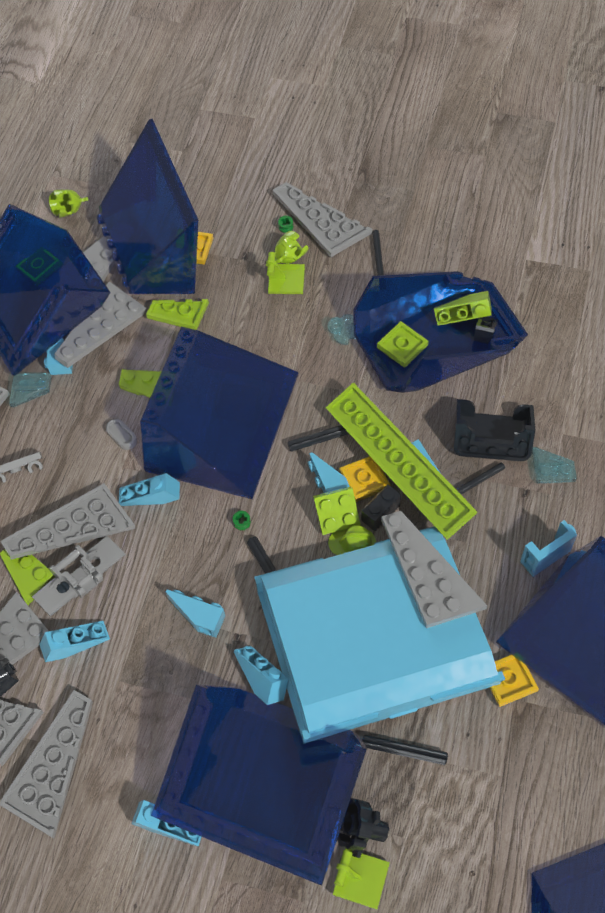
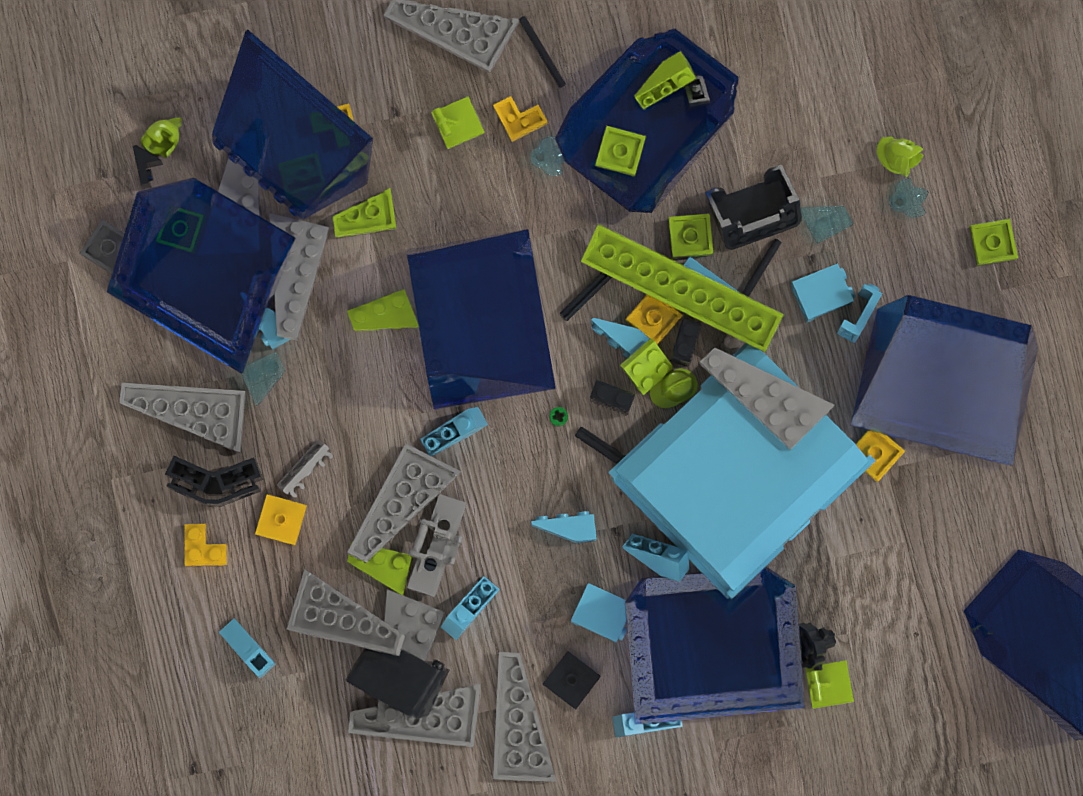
camera: 30 degrees left, 20 degrees up
(45, 212) = (144, 161): none -> black slope
(121, 434) = (388, 382): light grey tile -> none
(123, 749) = (571, 680): none -> black plate
(175, 695) = (601, 613): none -> medium azure panel
(283, 220) = (424, 48): green bush -> none
(288, 249) = (443, 88): lime helmet -> none
(294, 523) = (612, 397): none -> black brick
(332, 296) = (518, 123): none -> yellow plate
(405, 749) = (814, 560): black axle -> none
(429, 429) = (690, 236): none -> lime plate
(523, 518) = (822, 292): none -> medium azure panel

